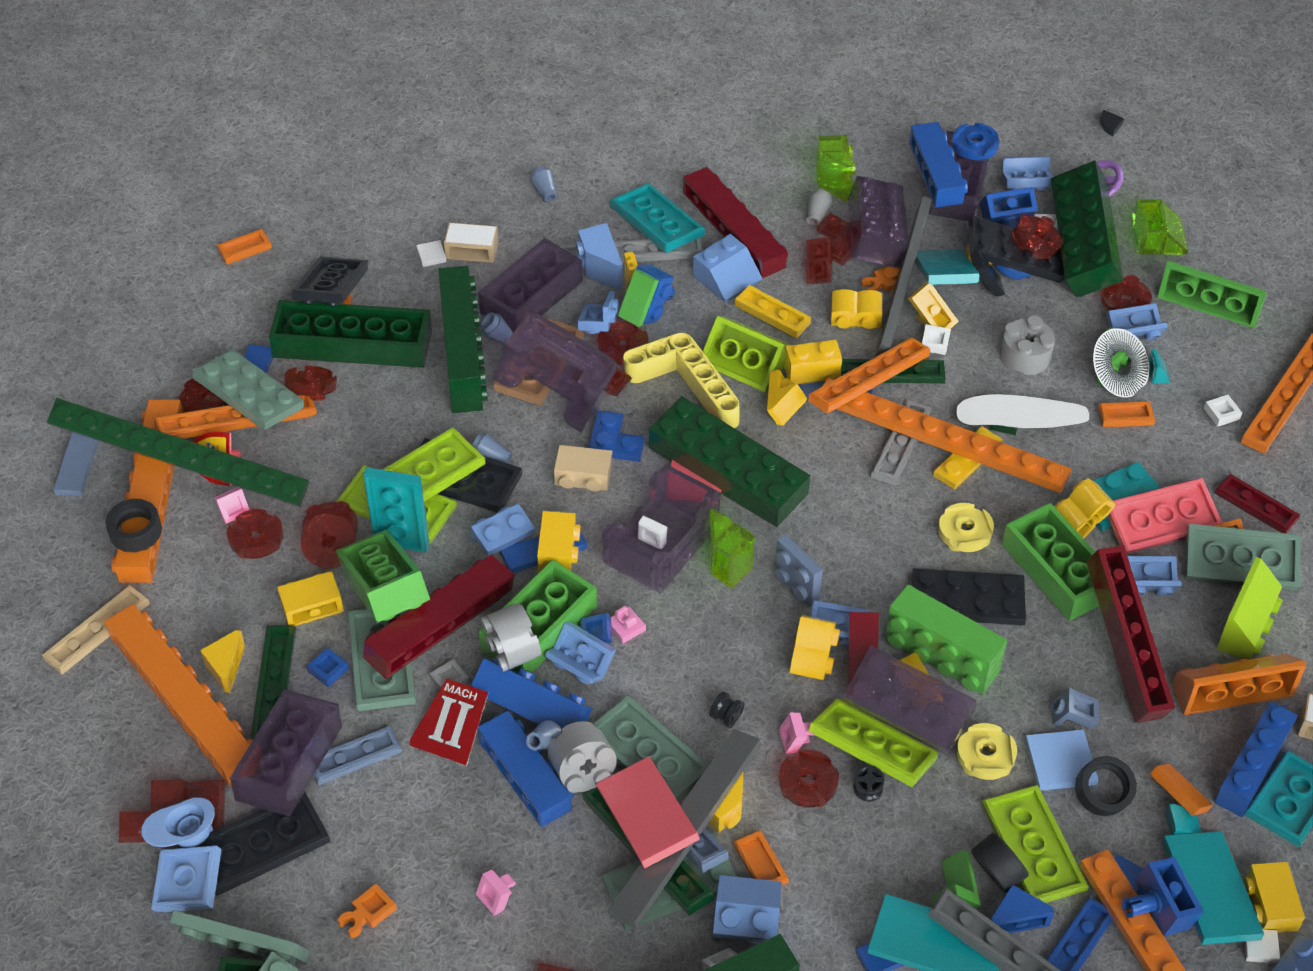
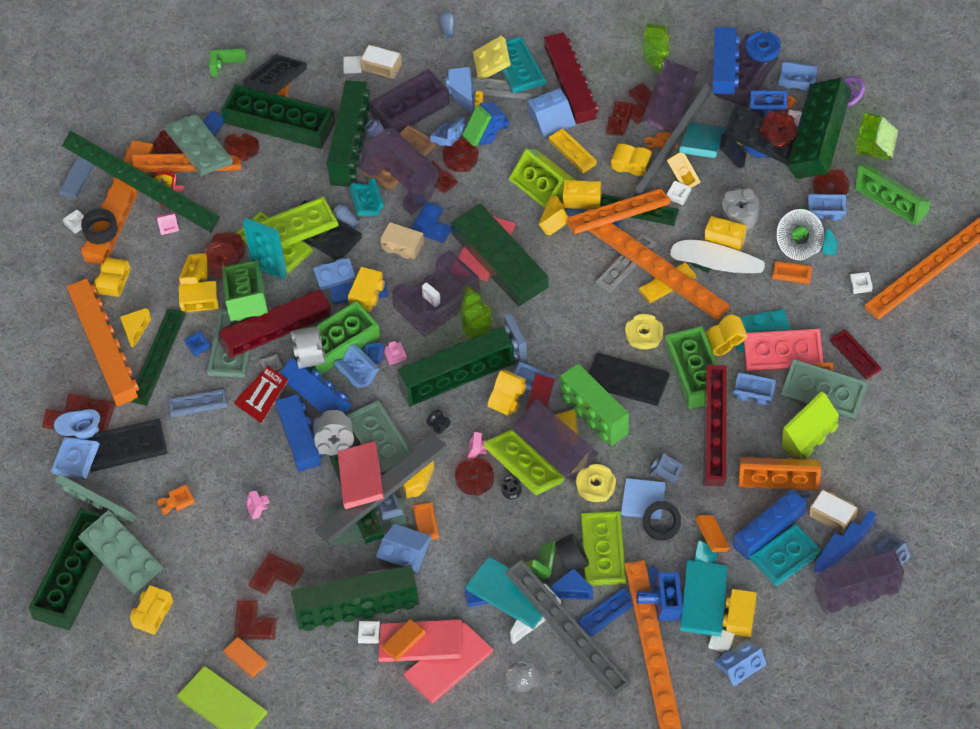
camera: 20 degrees right, 5 degrees up
(90, 527) = (73, 221): none -> white plate
(91, 631) = (59, 290): tan tile -> none
(169, 596) = (112, 277): none -> yellow brick
(244, 246) = (227, 37): orange tile -> none
(251, 269) = (218, 57): none -> bright green bracket
(256, 547) = (174, 237): clear red plate -> none
(286, 752) = (153, 392): clear purple brick -> none
(295, 560) = (194, 269): none -> yellow slope
(513, 420) = (366, 198): none -> teal bracket
(543, 734) = (311, 414): sand blue cone -> none
(622, 212) = (491, 58): none -> light yellow plate
(684, 355) = (495, 171): light yellow beam -> none
(726, 625) = (455, 366): none -> dark green brick
(818, 206) = (635, 76): light grey cone -> none
(1022, 378) = (725, 233): none -> yellow brick
(1111, 122) = (881, 45): black tile -> none

